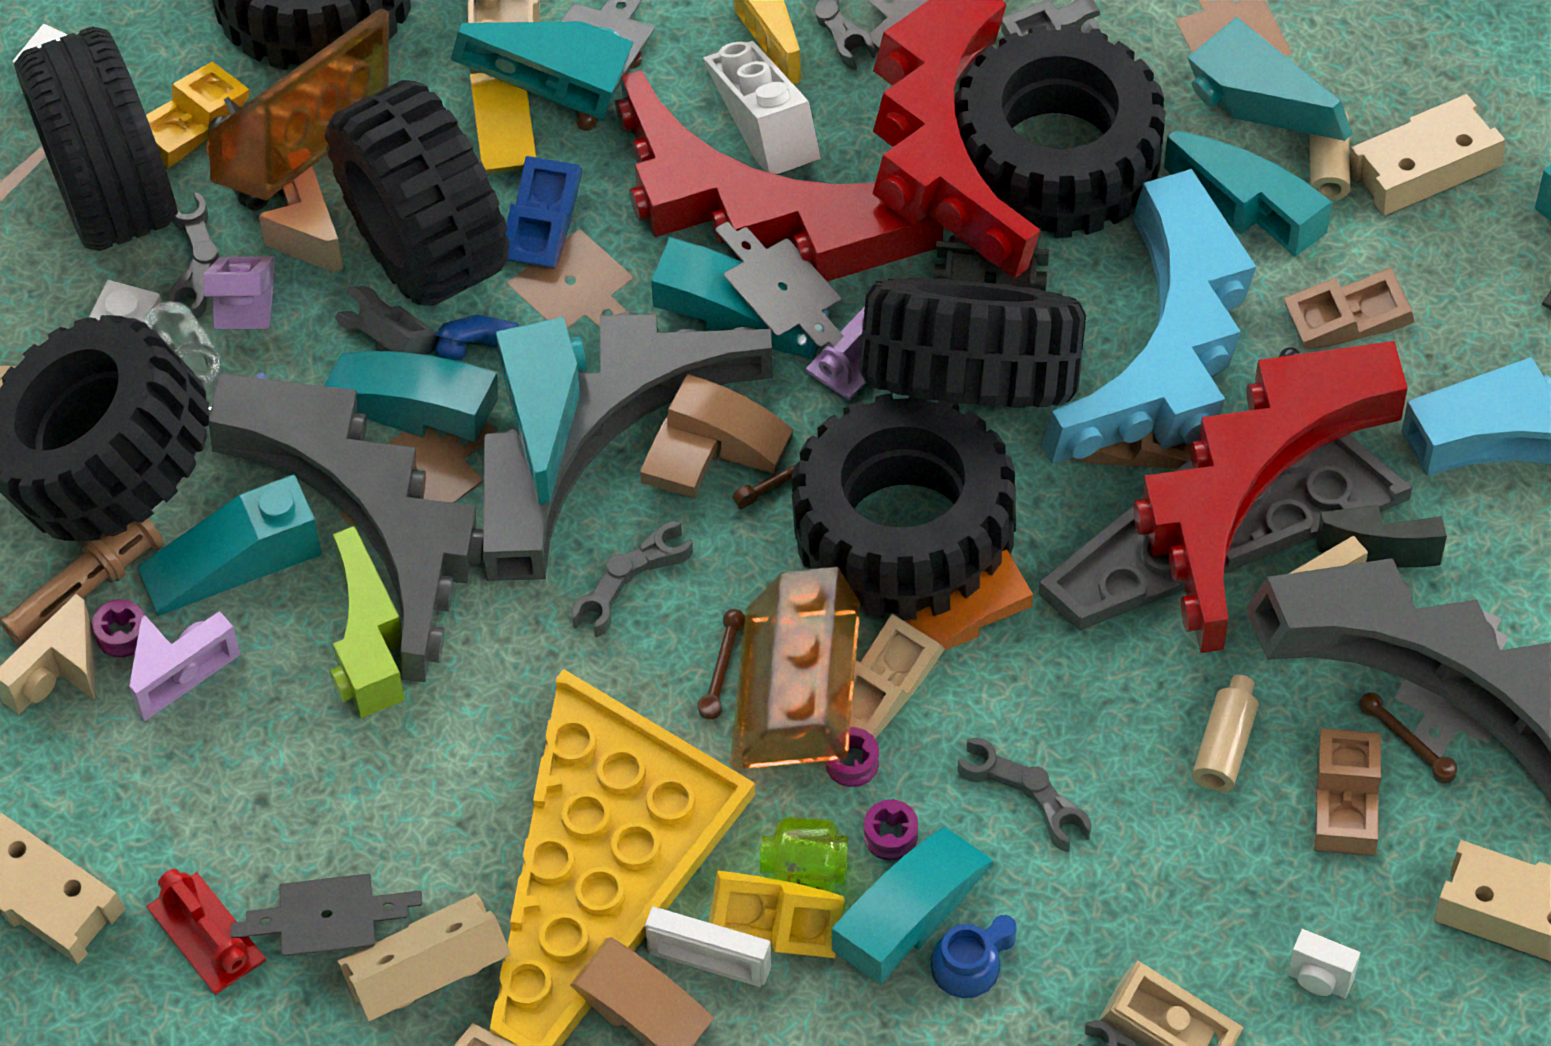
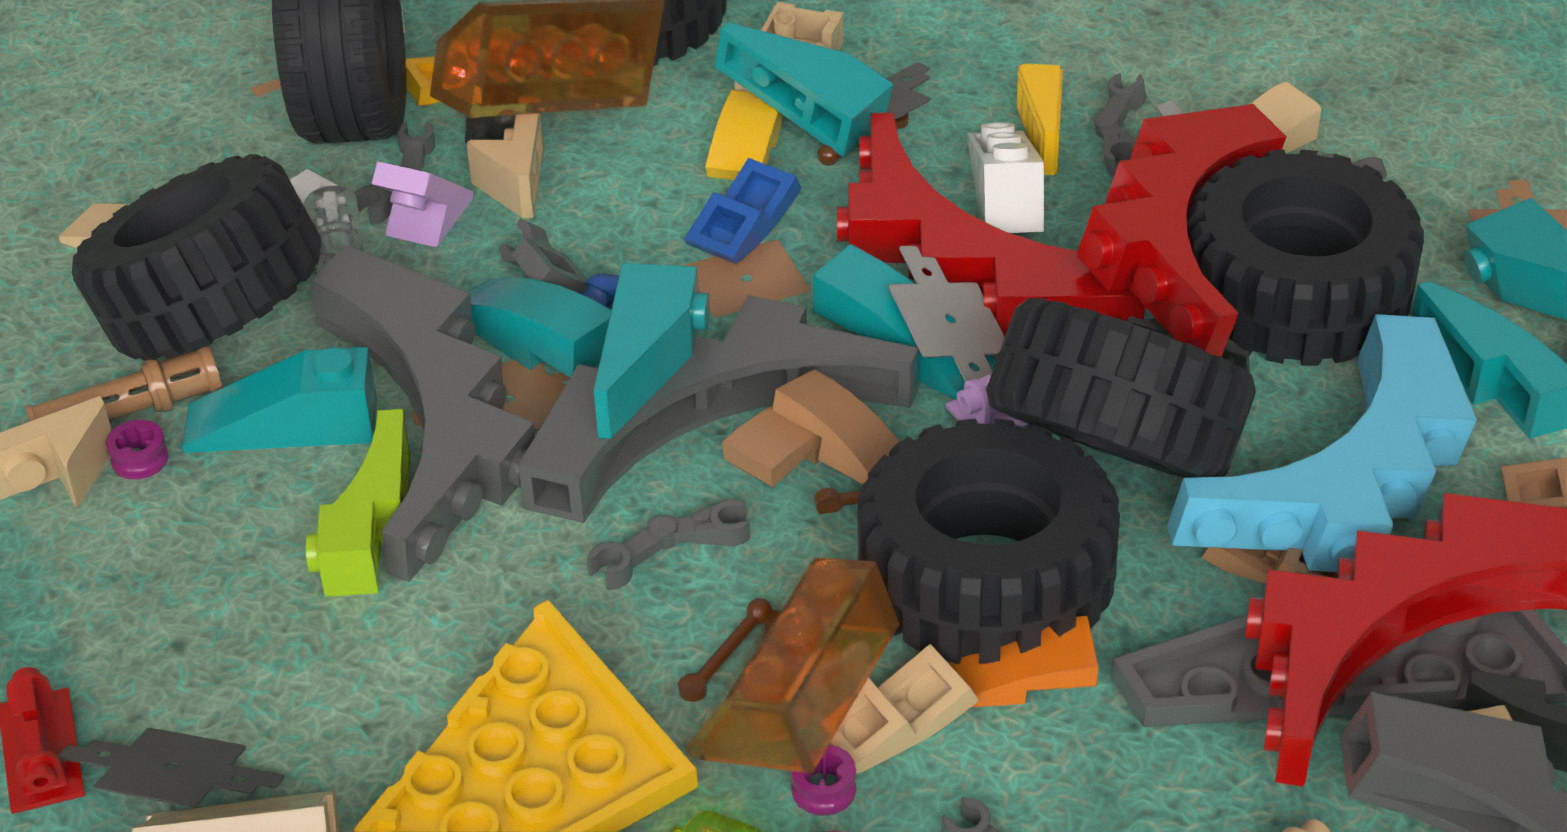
camera: 20 degrees right, 15 degrees down
(170, 670) = (157, 494): lavender slope -> none
(417, 192) = (613, 139): black tyre -> none

